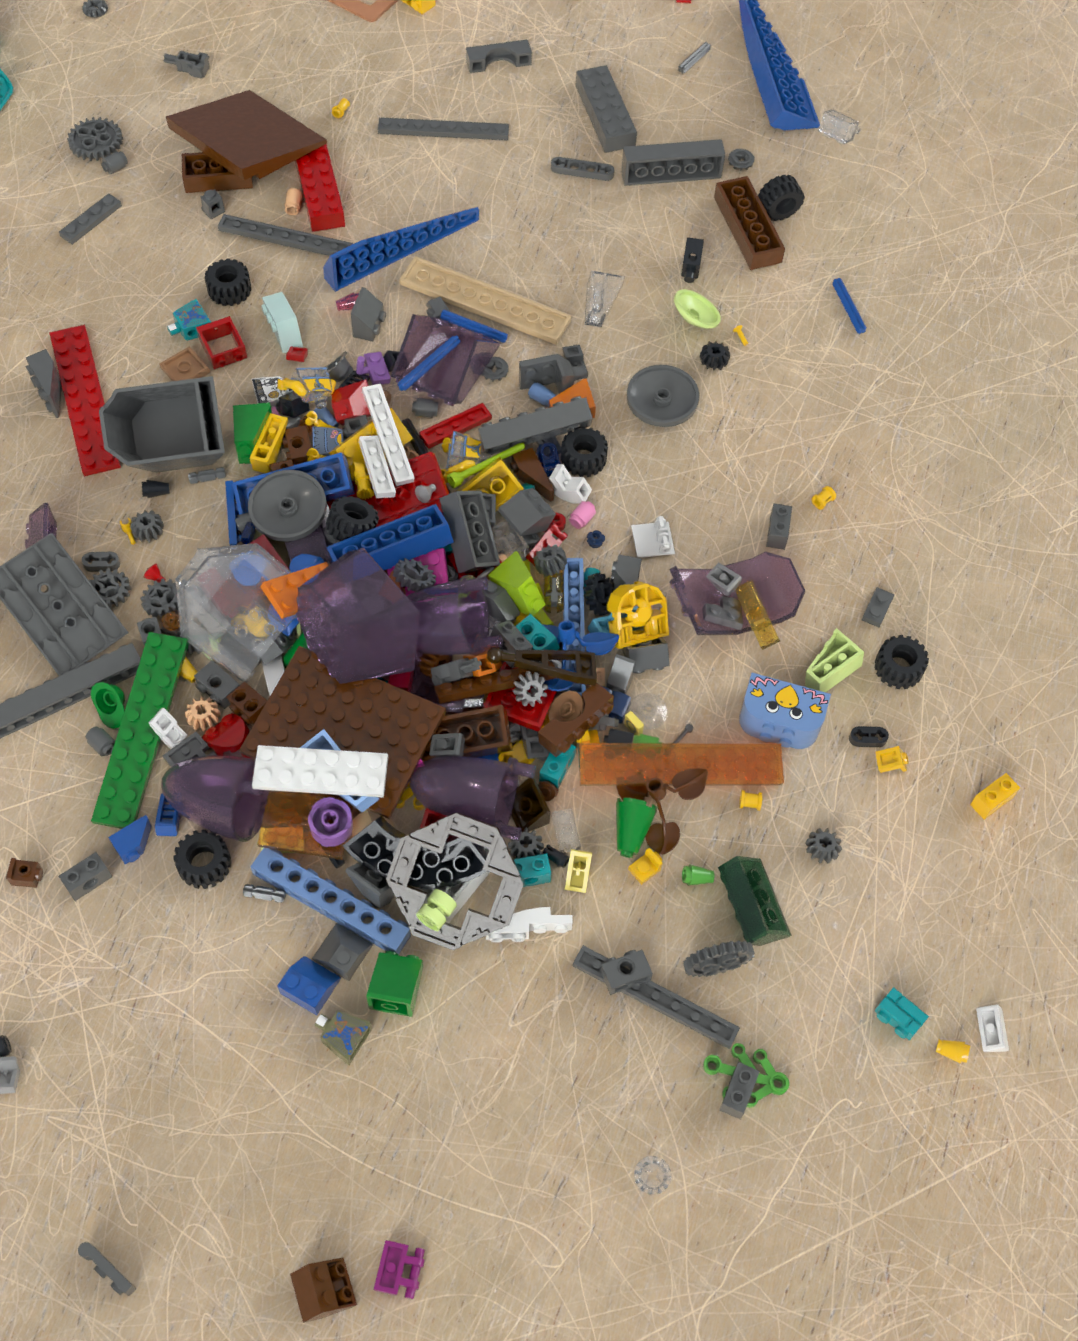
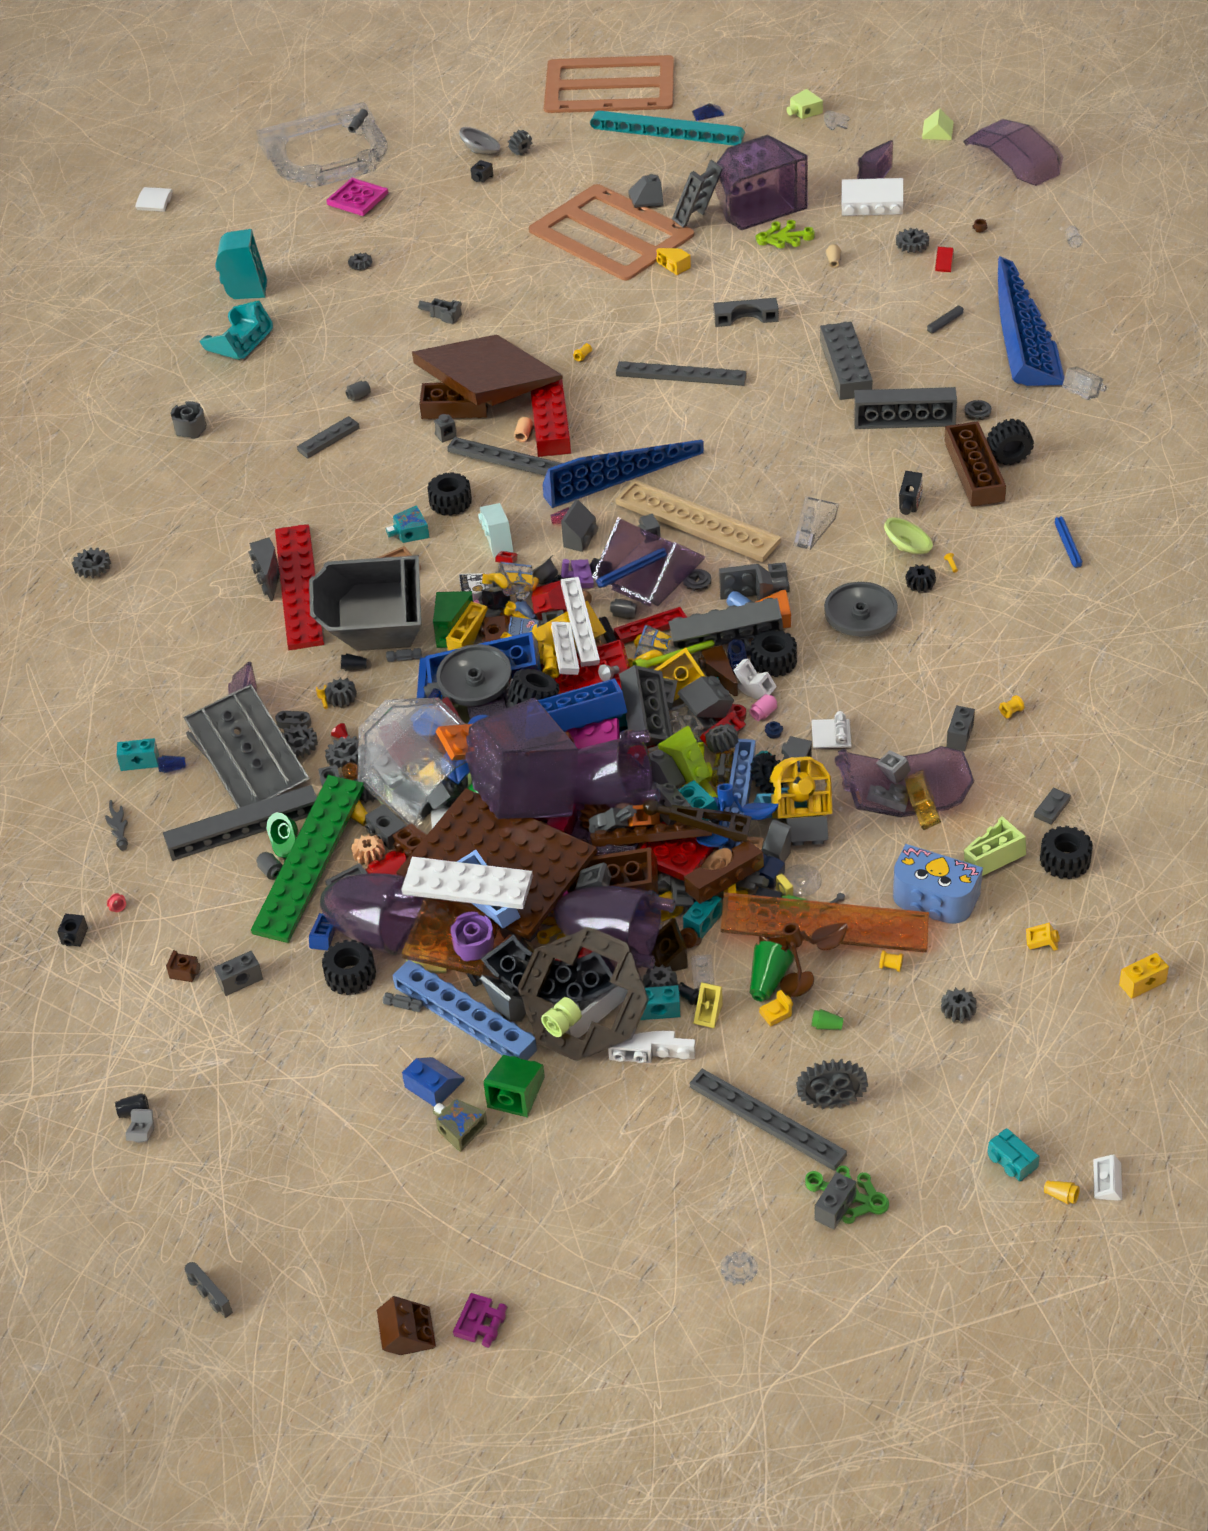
camera: 15 degrees right, 15 degrees down
(95, 138) = (342, 370): dark grey gear -> none
(132, 840) = (286, 947): blue slope -> none
(167, 729) = (331, 855): white slope -> none
(224, 327) = (440, 532): red window -> none
(342, 951) = (469, 1057): dark grey slope -> none
(413, 575) = (583, 735): dark grey gear -> none
(474, 326) = (674, 537): blue axle -> none
(524, 685) = (686, 845): light grey gear -> none
(582, 168) = (833, 415): dark grey beam -> none
(618, 981) = (739, 1090): dark grey brick -> none
(753, 900) = (879, 1045): clear green slope -> none
(868, 736) = (1022, 916): black beam -> none

